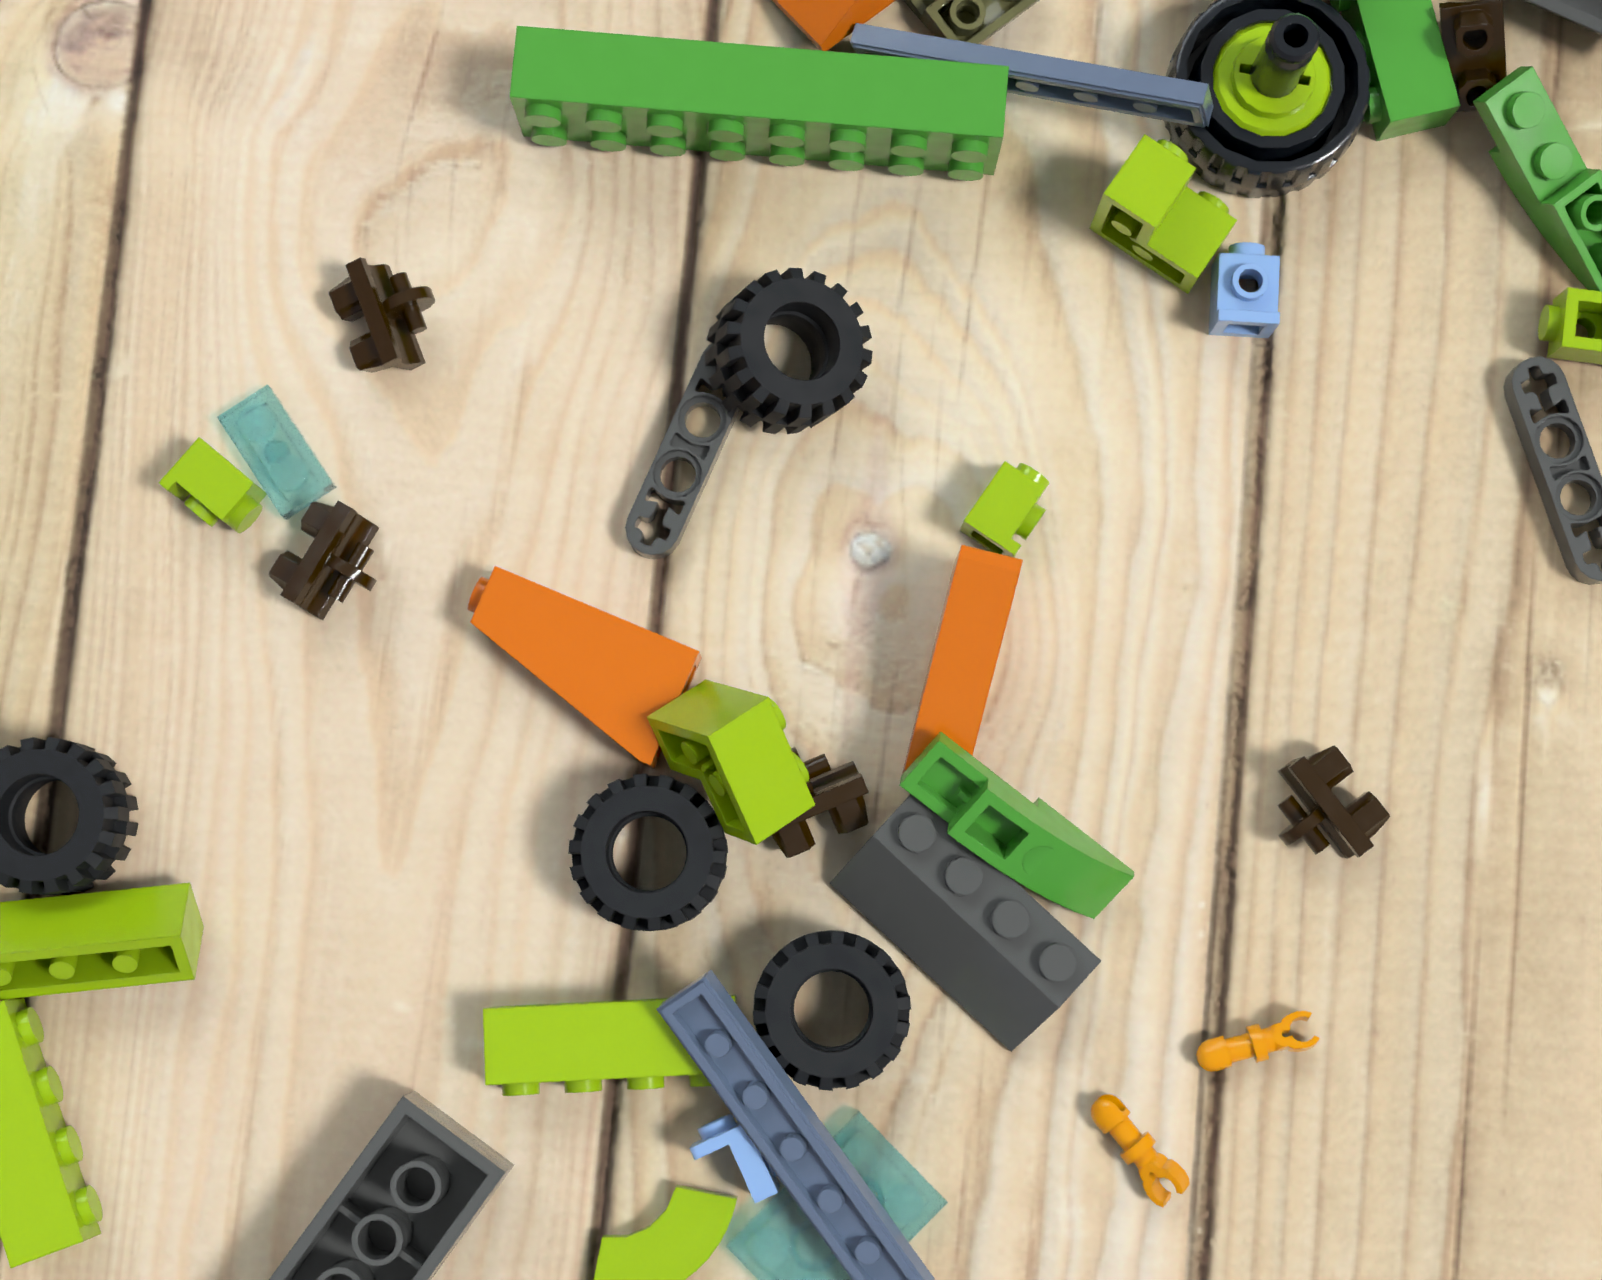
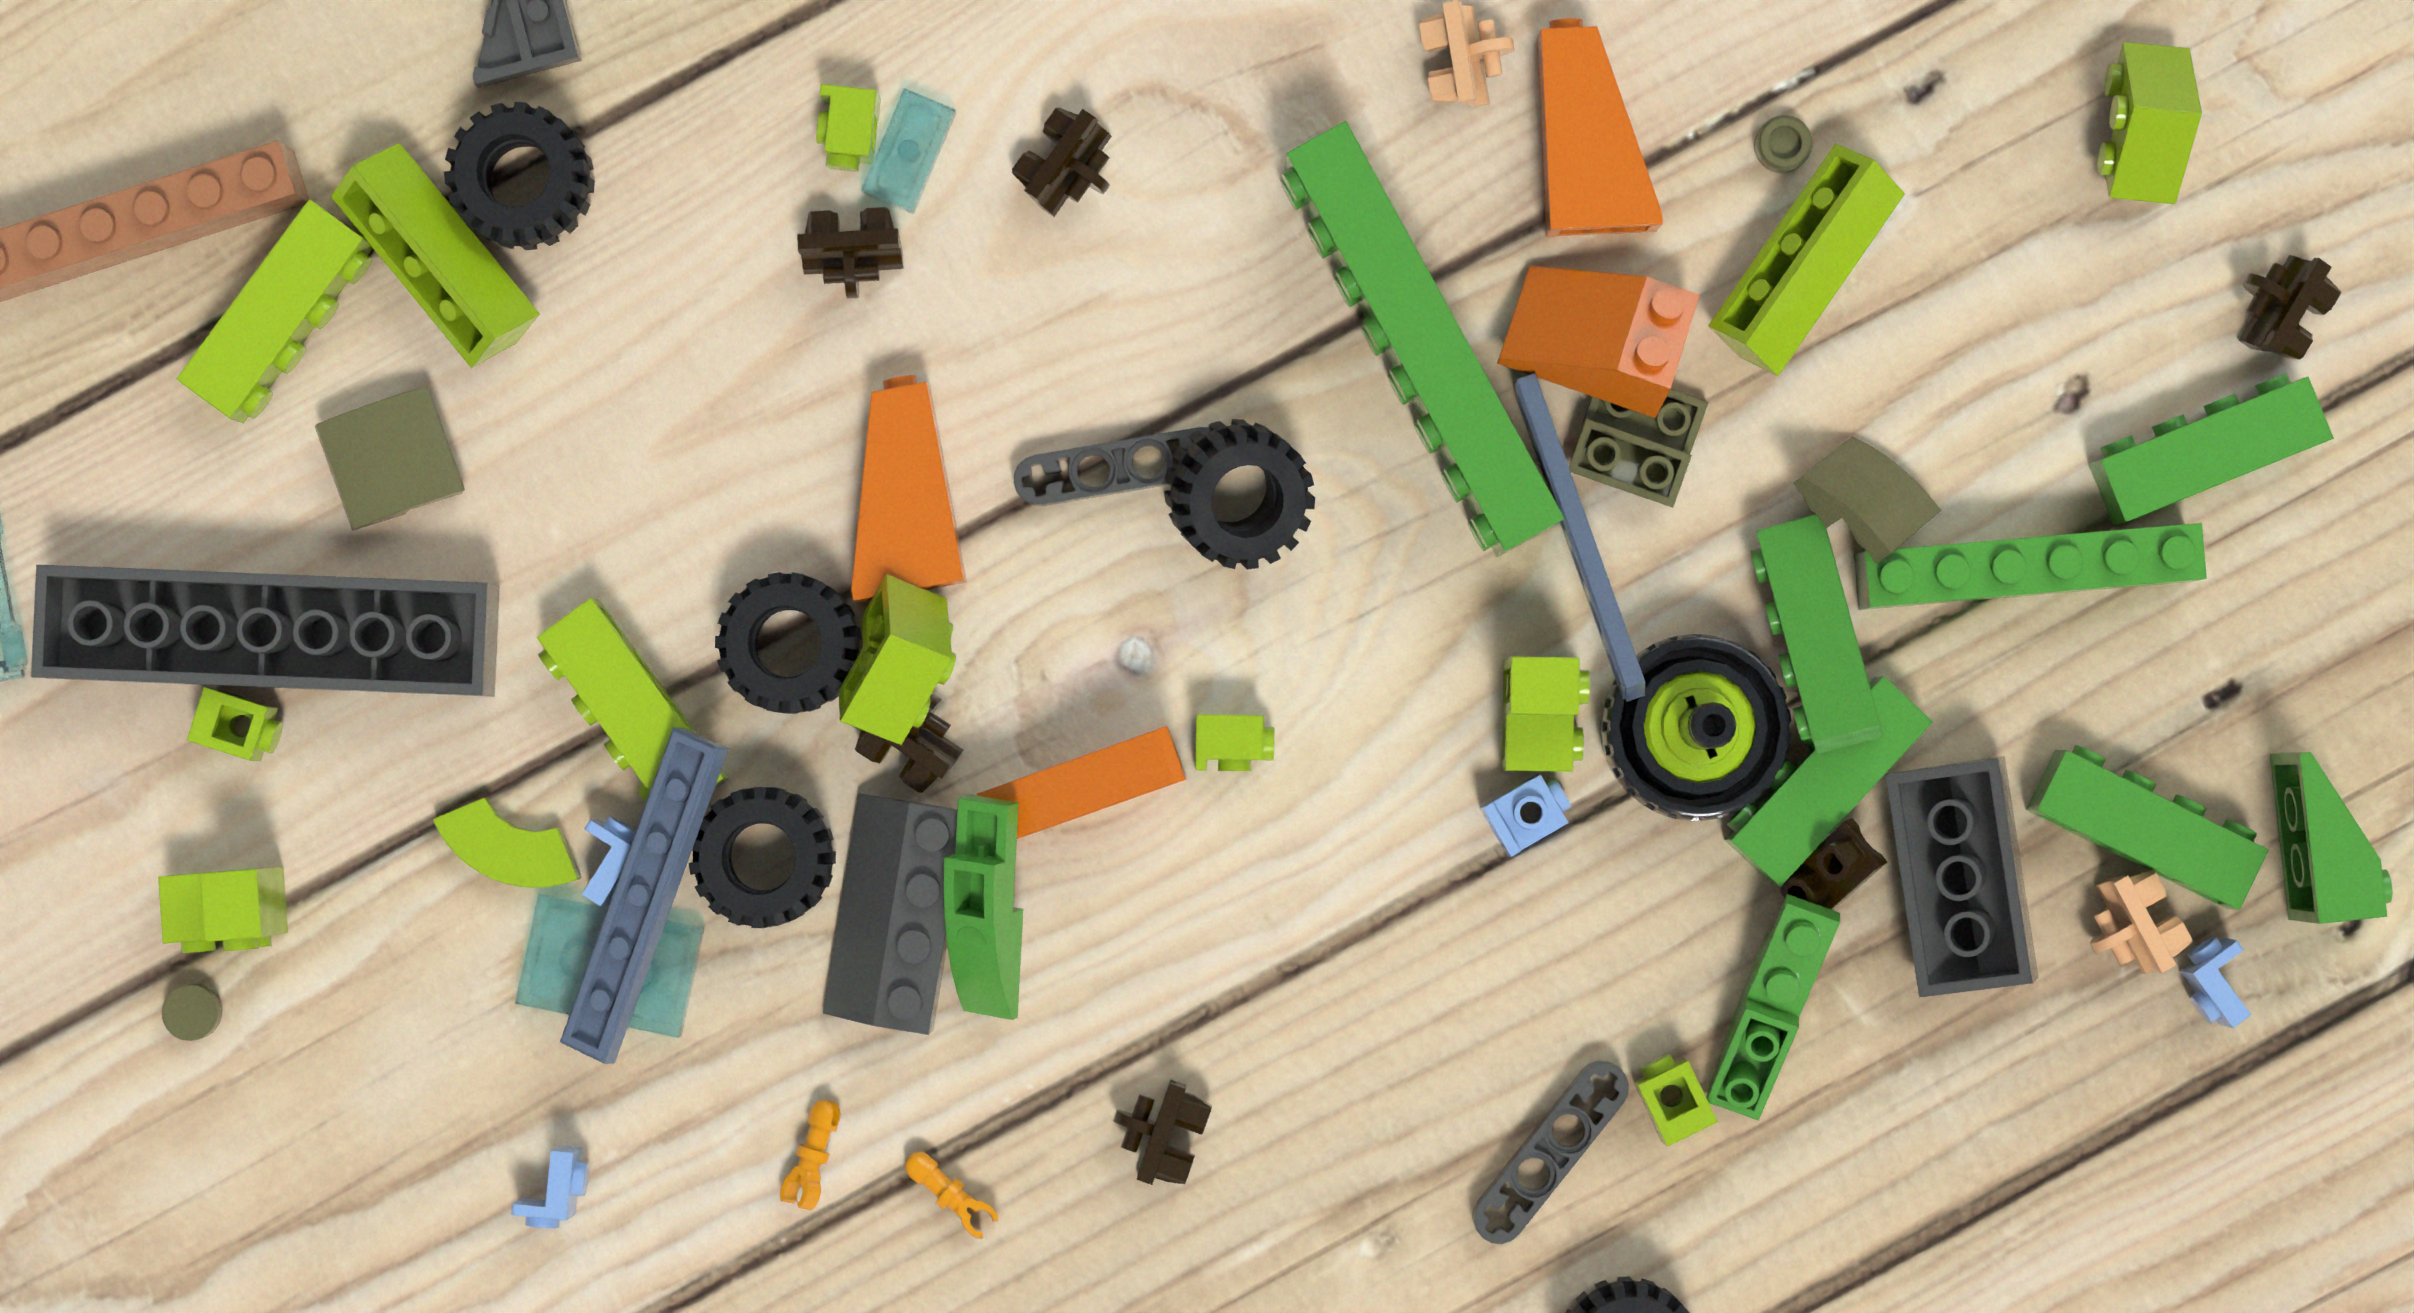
camera: 60 degrees right, 5 degrees up
(225, 1114) = (389, 457): none -> olive slope

